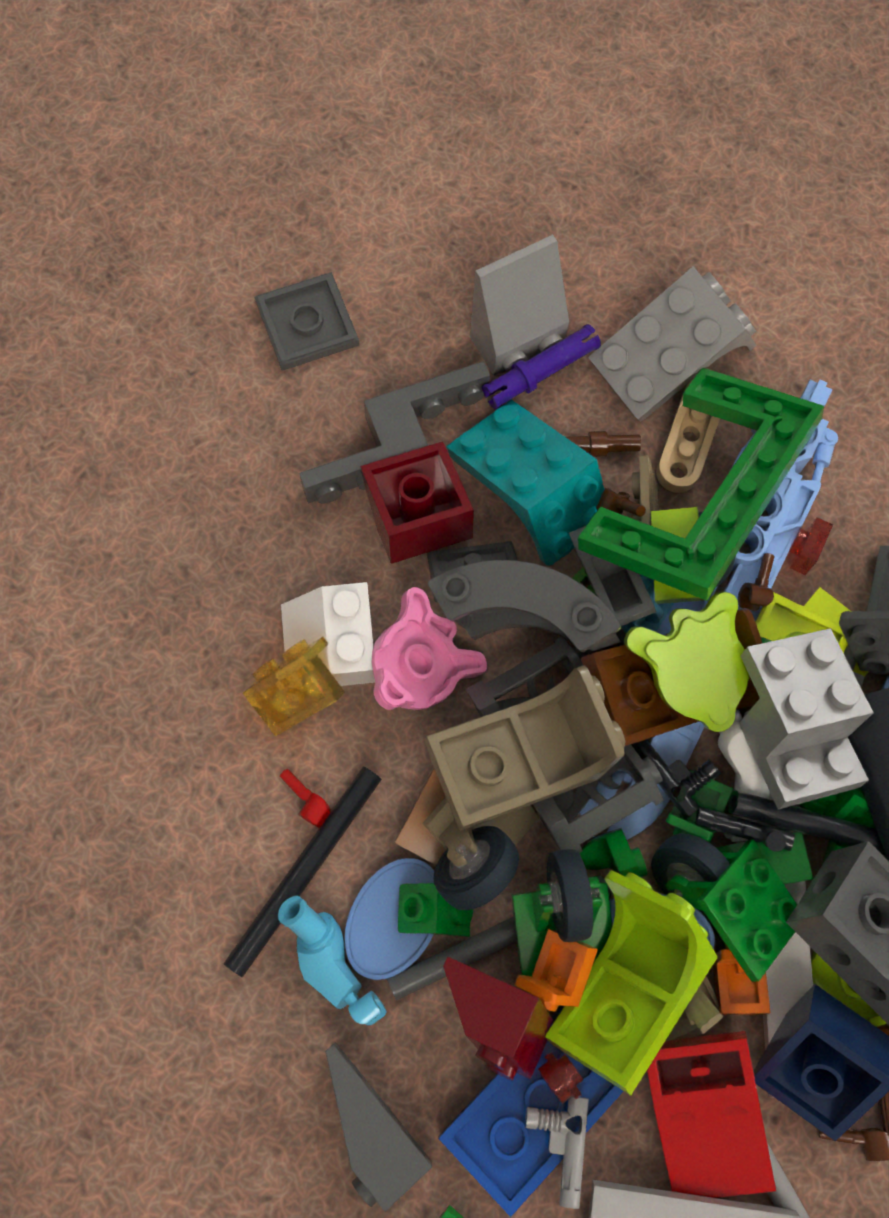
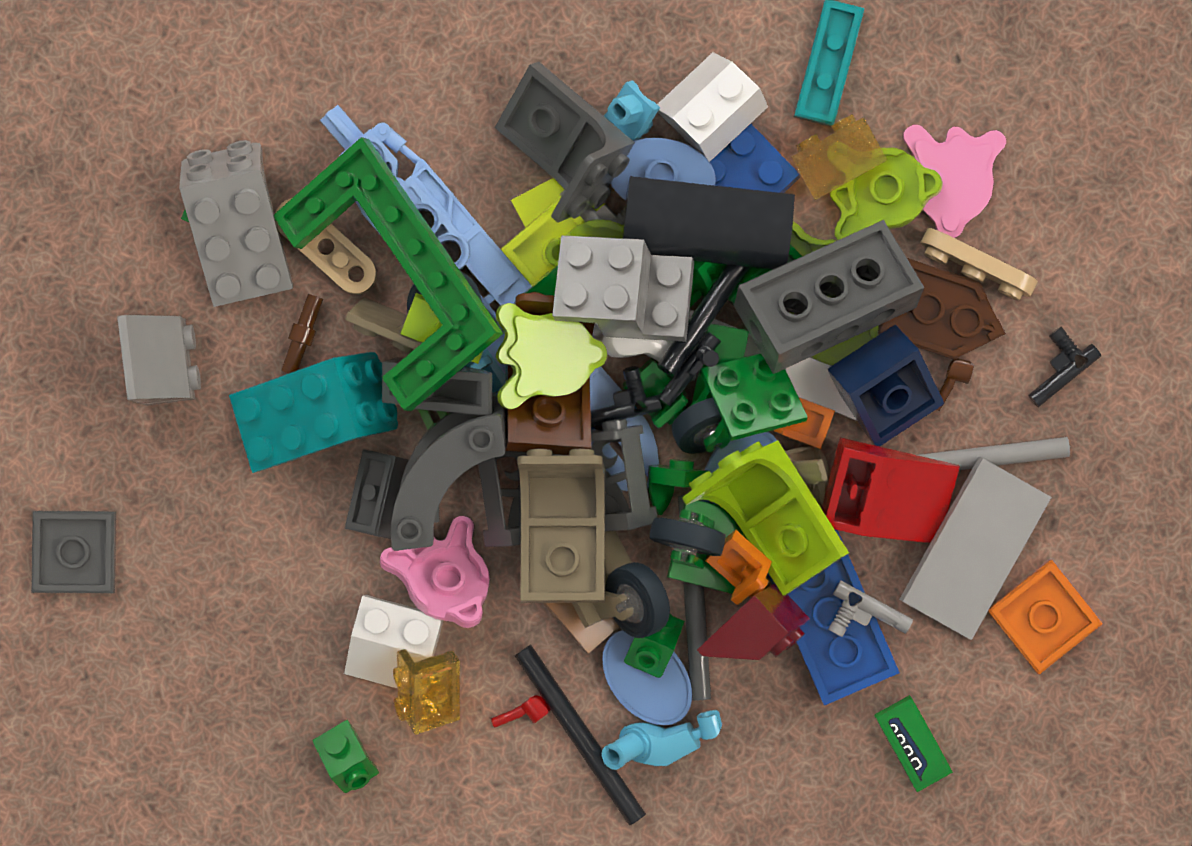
camera: 60 degrees left, 15 degrees up
(194, 635) = (345, 757): none -> green bracket
(377, 1143) = (807, 753): dark grey slope -> none
(396, 428) = (225, 513): dark grey bracket -> none
(418, 502) = (300, 521): dark red slope -> none
(527, 374) = (210, 357): dark purple pin -> none
(561, 1077) = (817, 596): clear red plate -> none
(619, 502) = (377, 353): reddish brown hand -> none
(759, 594) = (501, 261): reddish brown hand -> none
(809, 545) = (470, 193): clear red plate -> none

